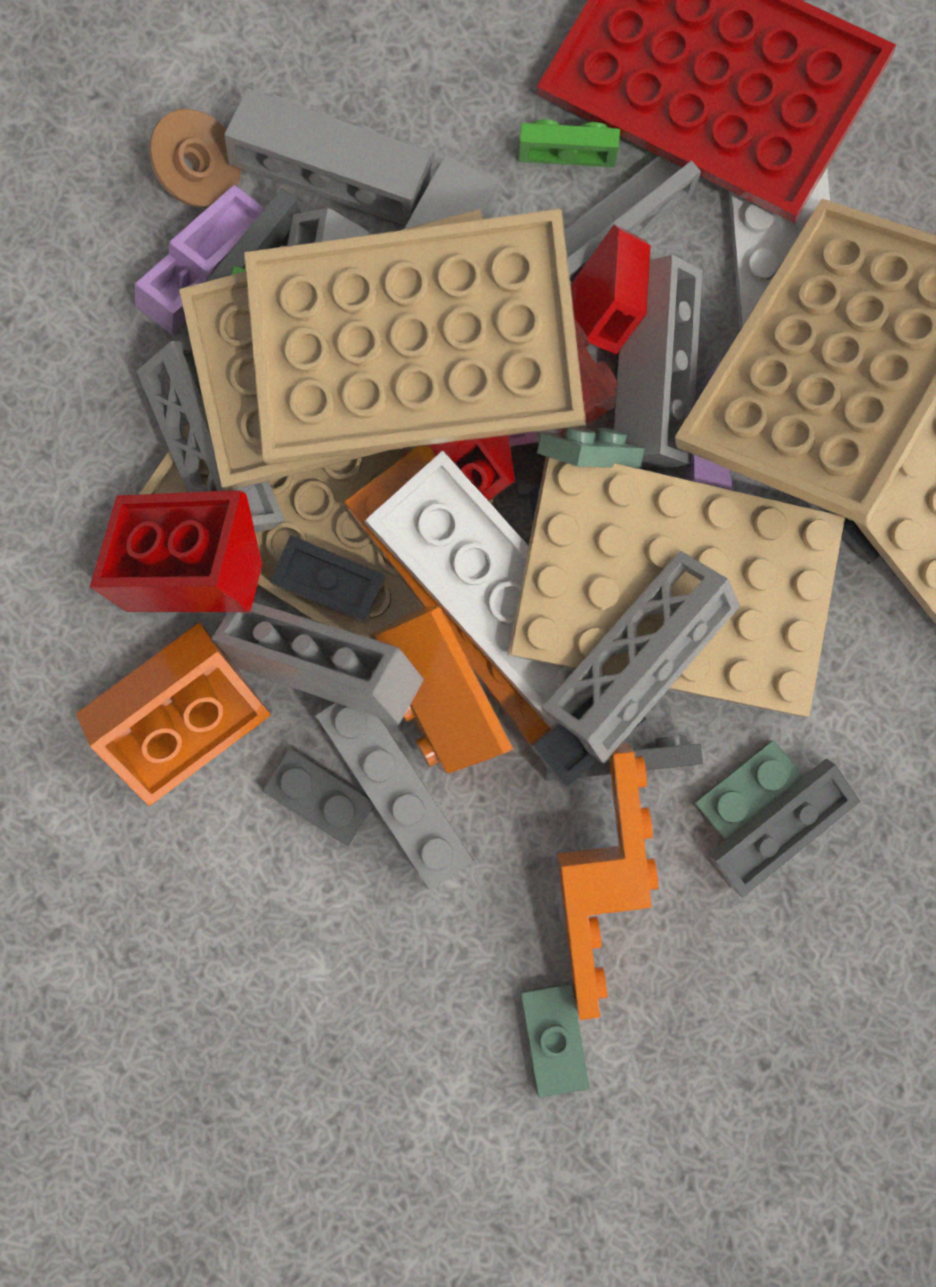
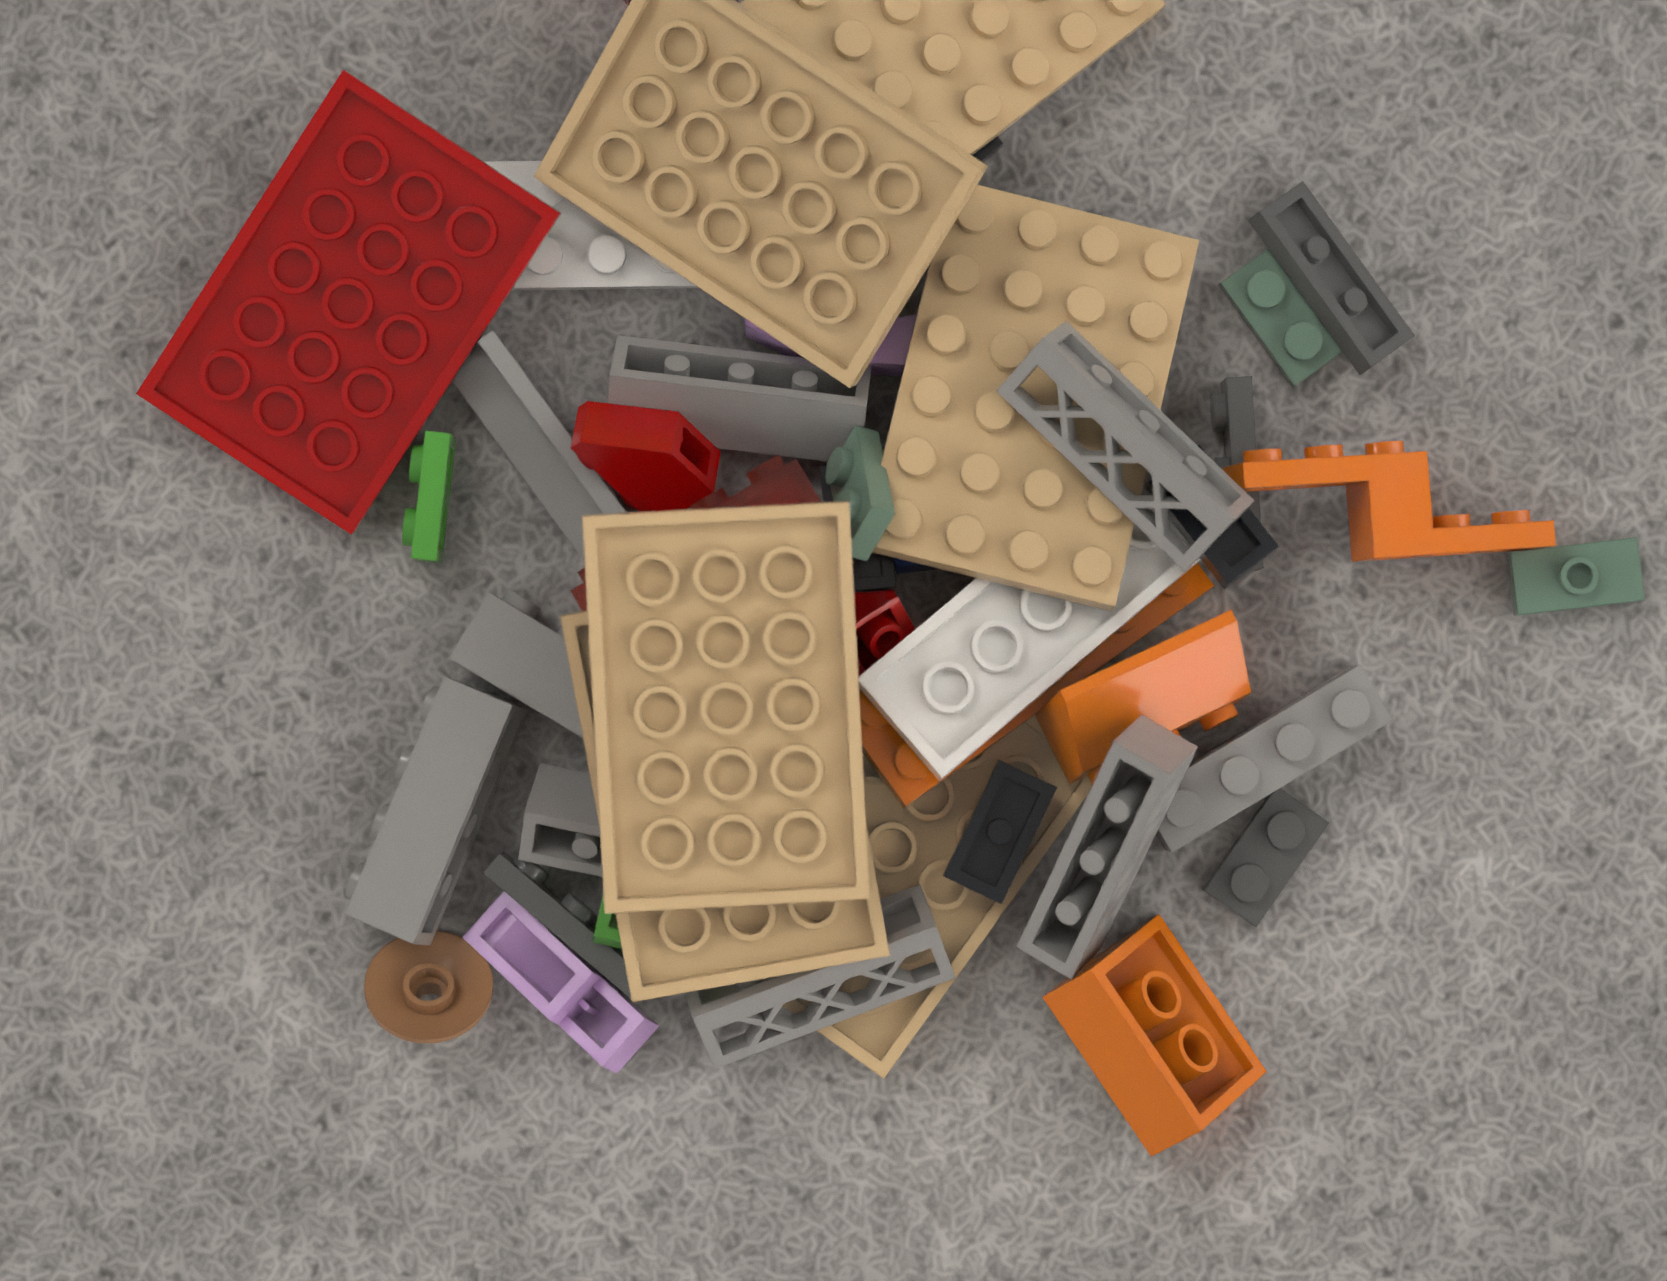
camera: 90 degrees left, 5 degrees up
(179, 553) = (960, 1016): red slope -> none

